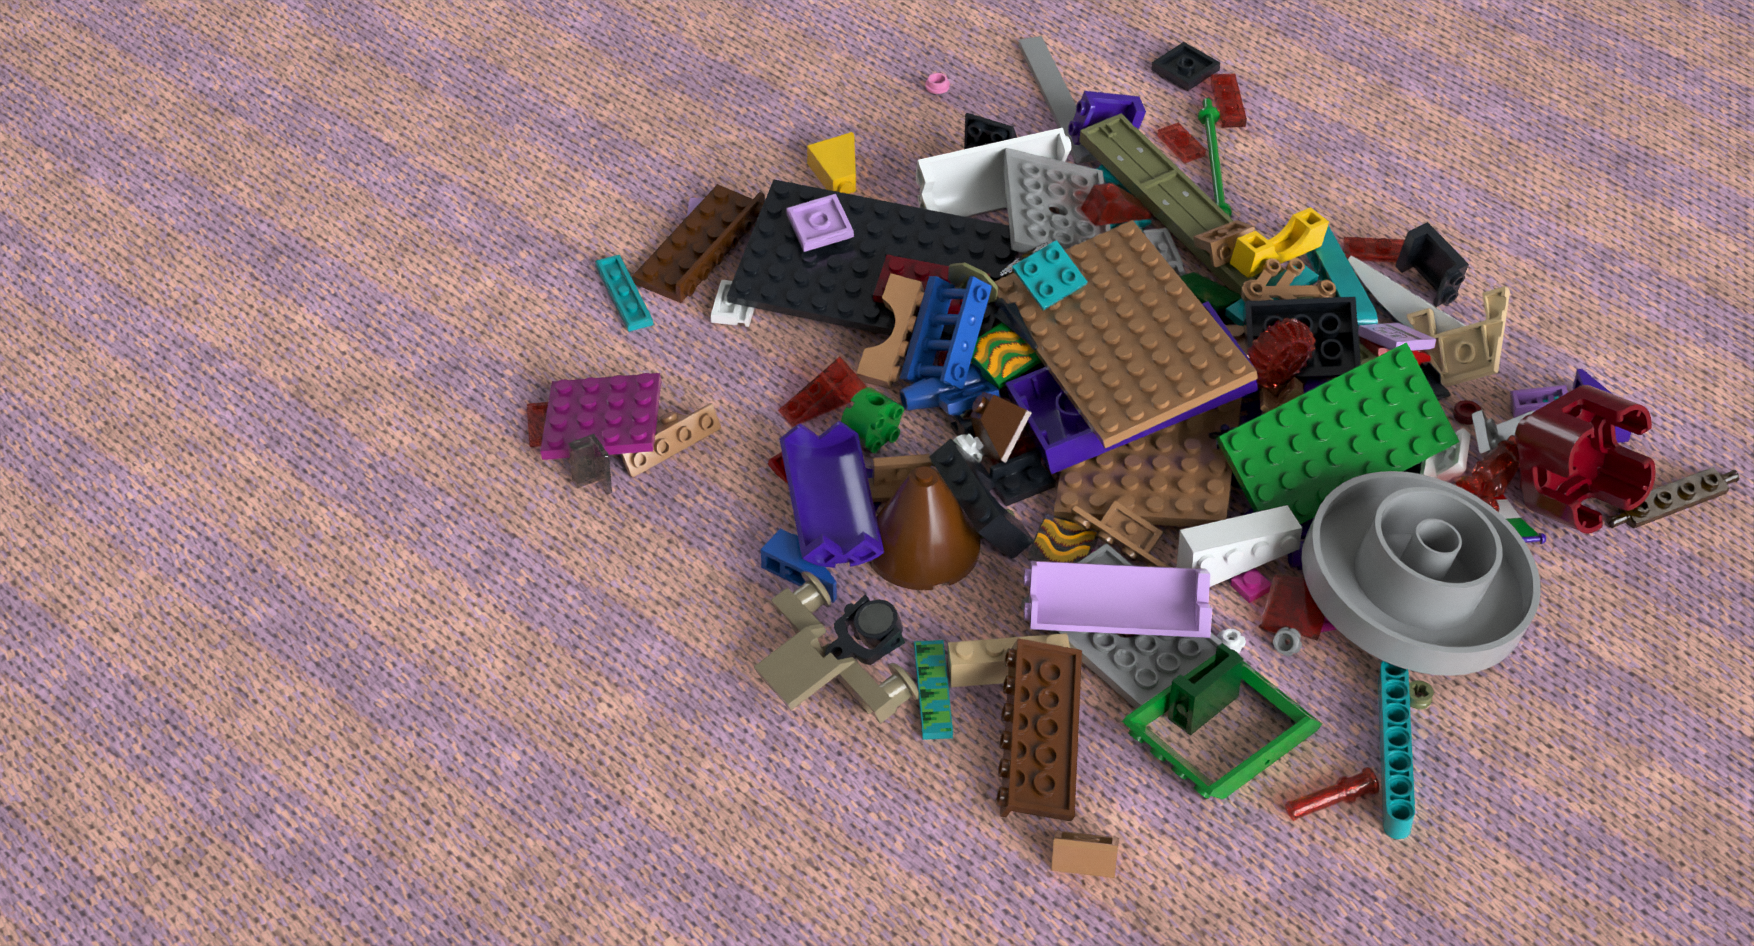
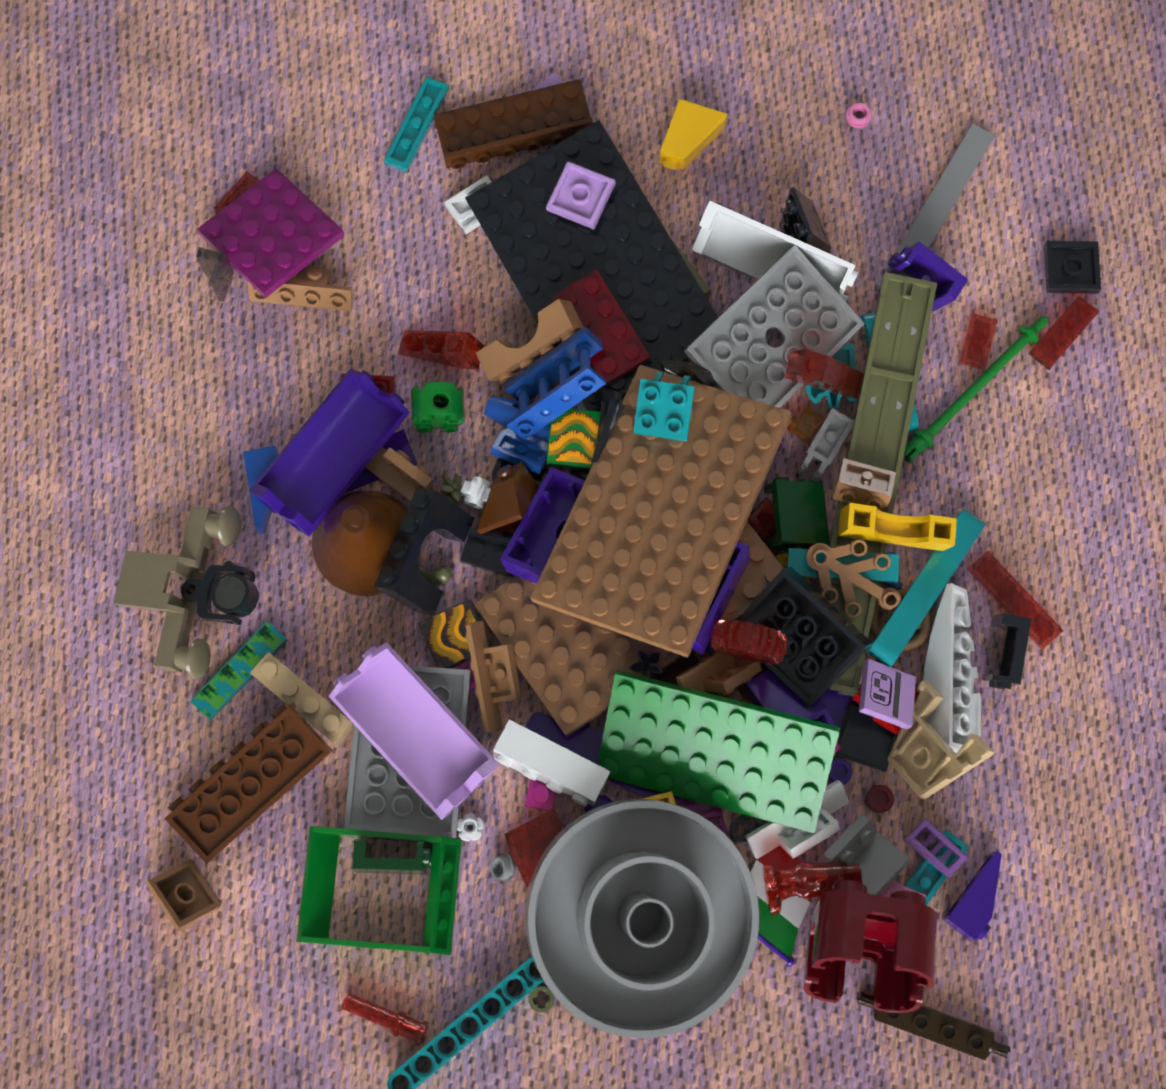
camera: 45 degrees right, 30 degrees up
(959, 275) = (603, 363): olive piece -> none

